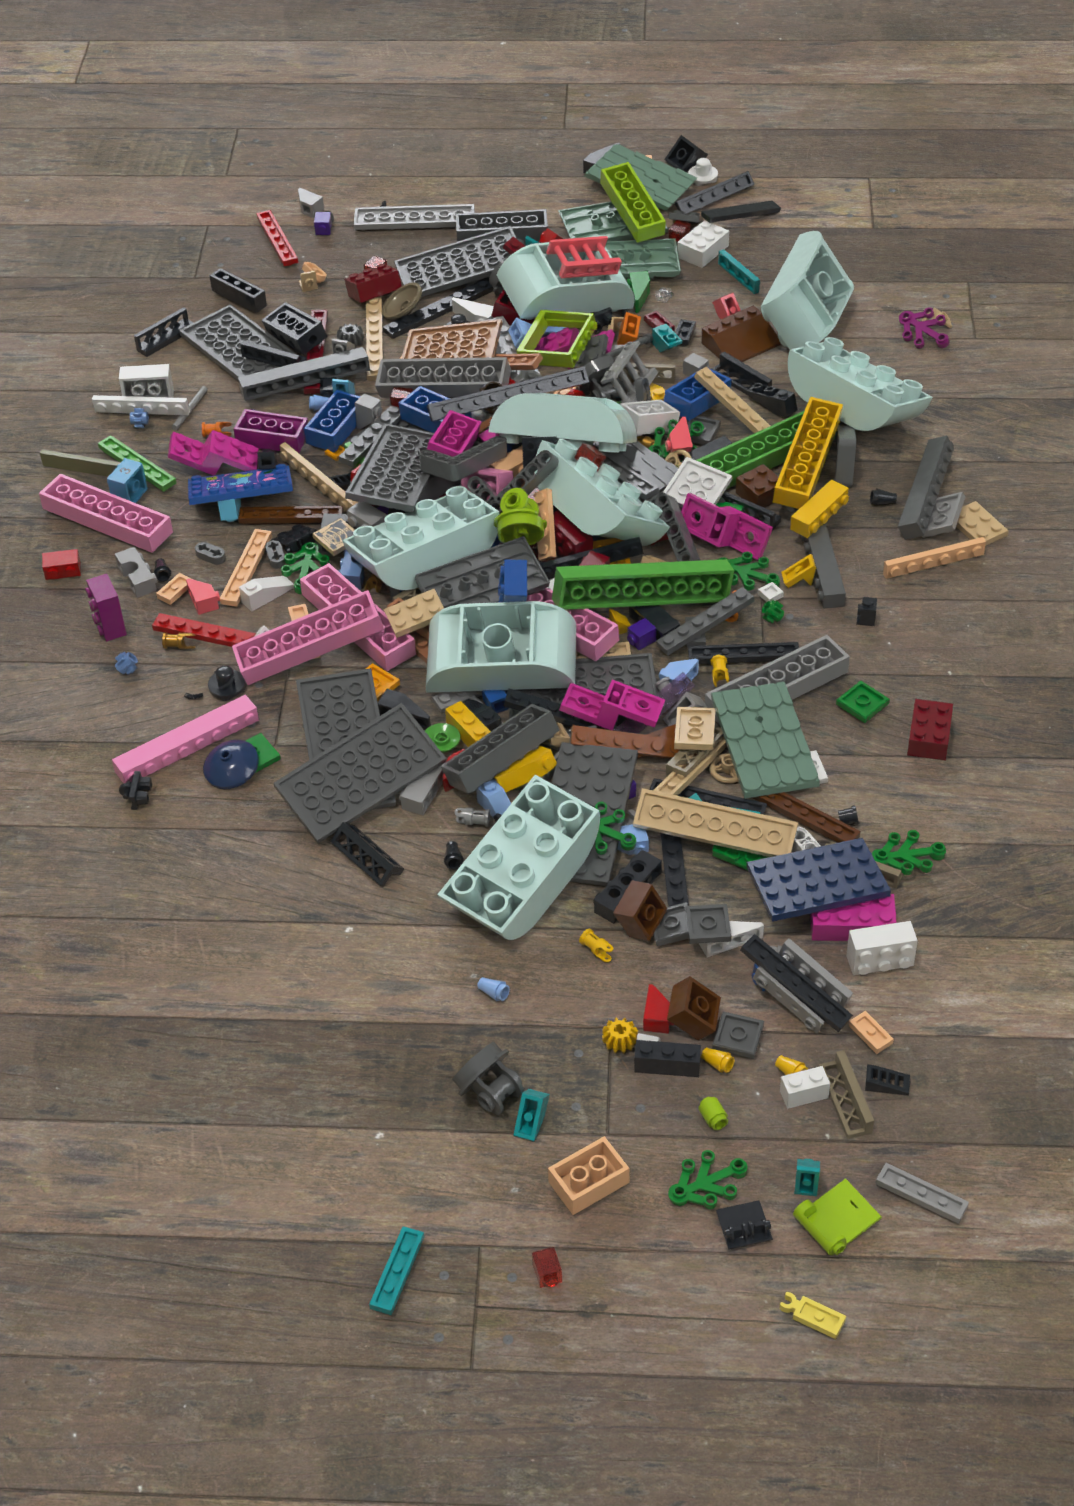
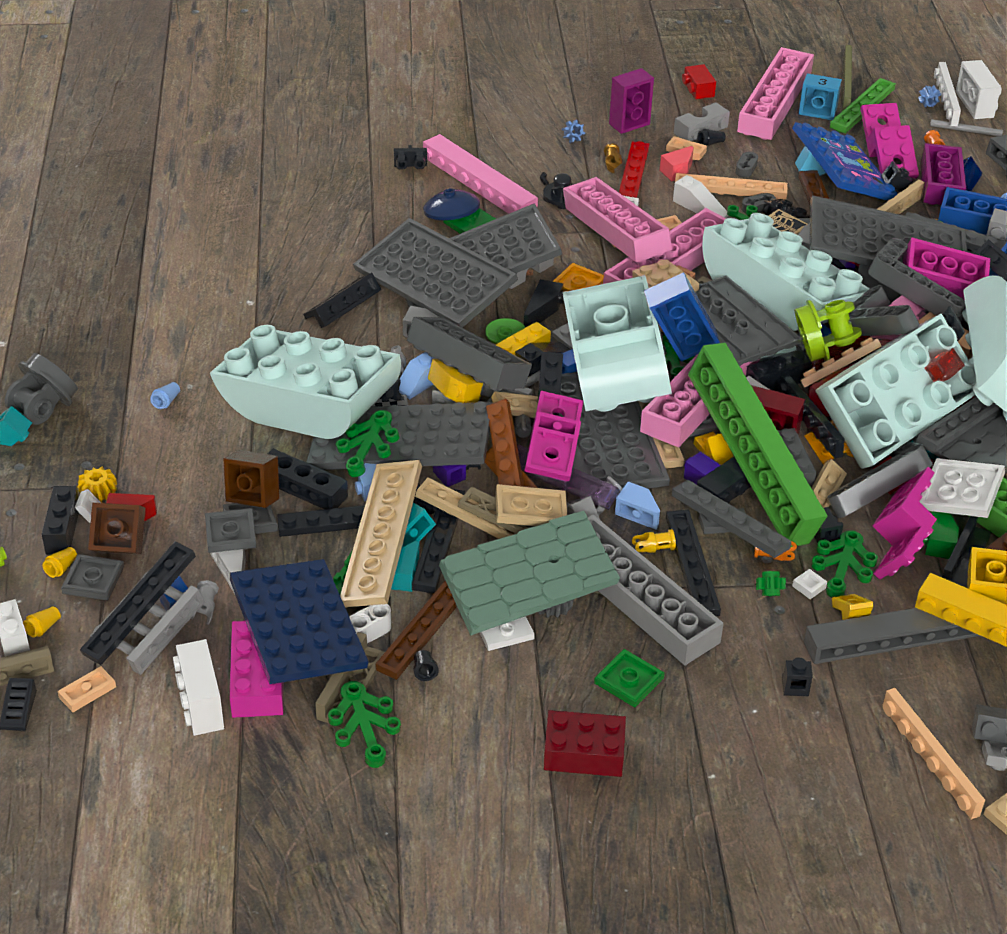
camera: 80 degrees right, 5 degrees down
(597, 945) = (216, 463): yellow piece -> none

